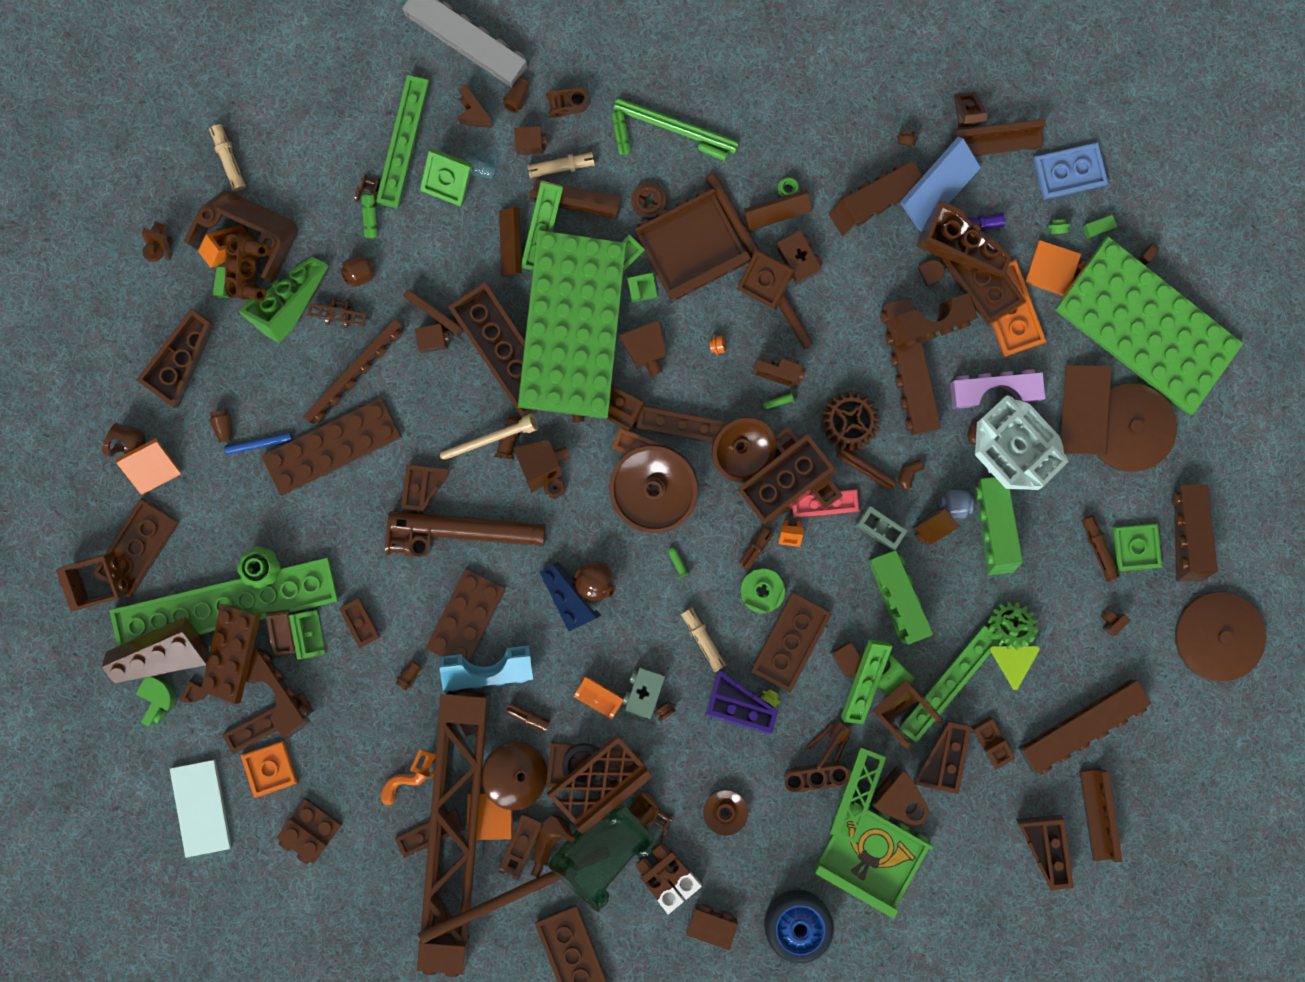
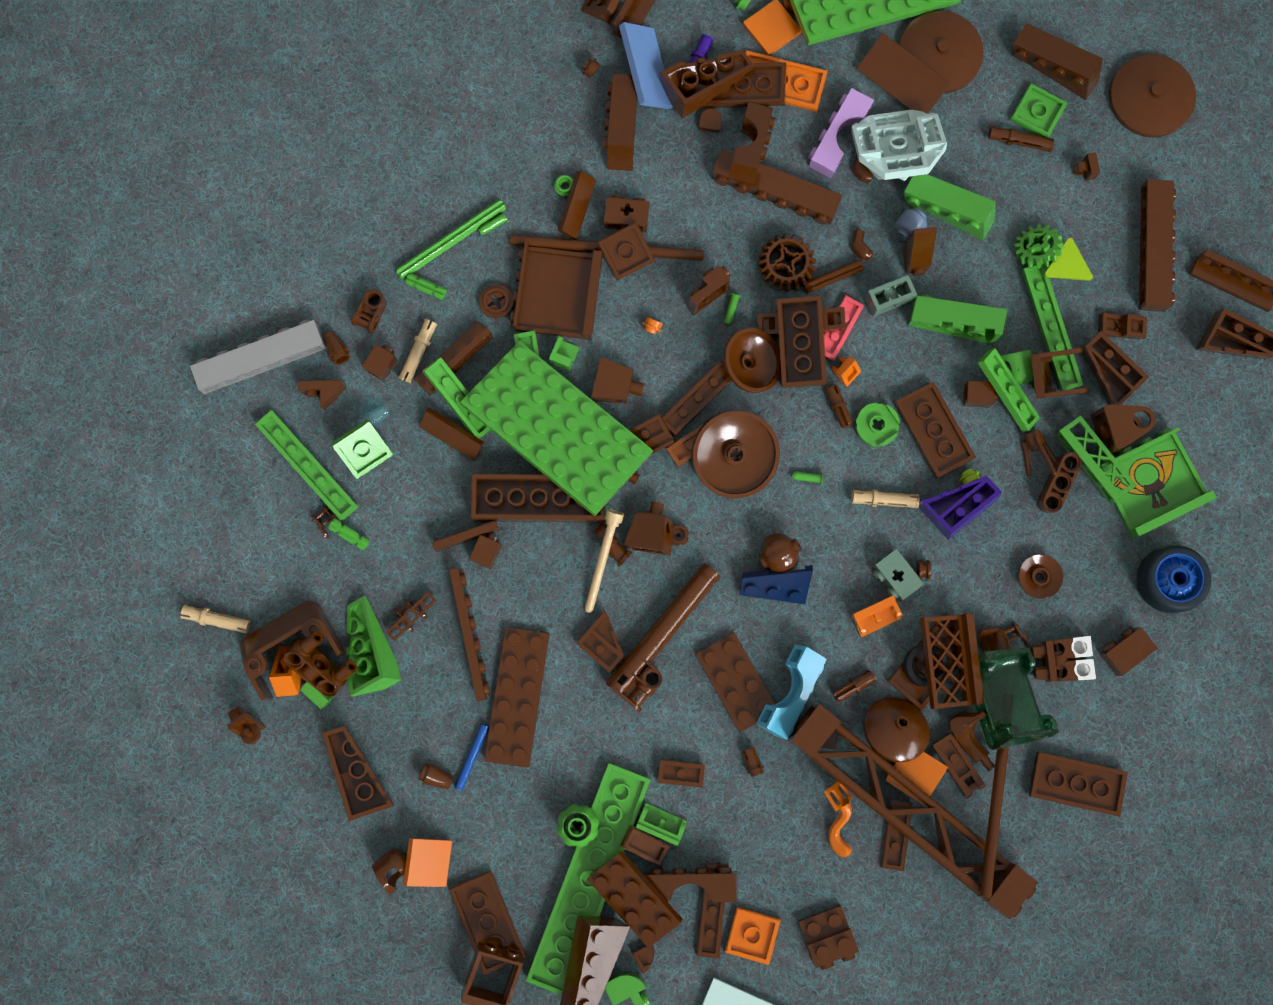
camera: 50 degrees left, 5 degrees down
(357, 270) = (386, 574): reddish brown head -> none

